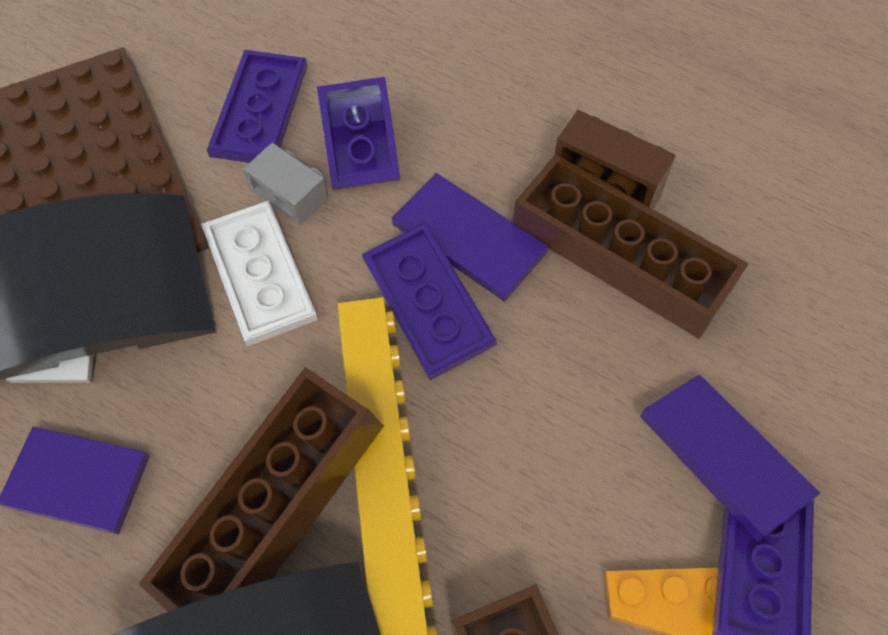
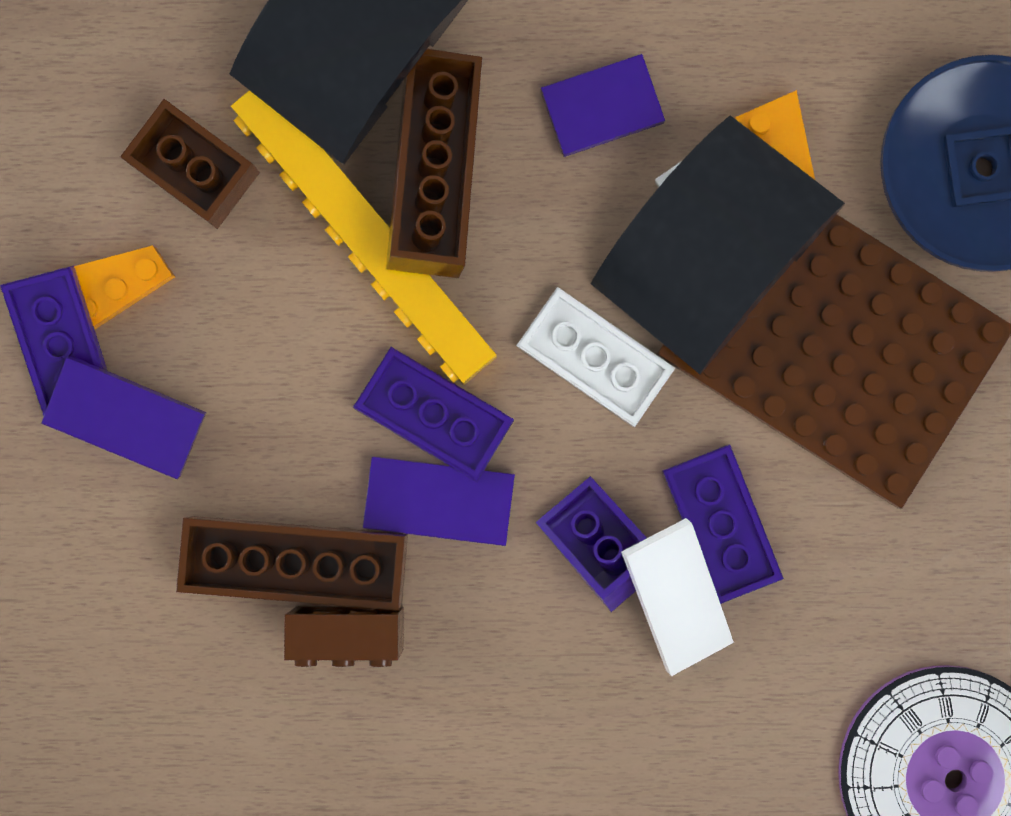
camera: 150 degrees right, 25 degrees up
(286, 183) = (629, 451): light grey brick -> none
(326, 62) = (678, 596): none -> white tile

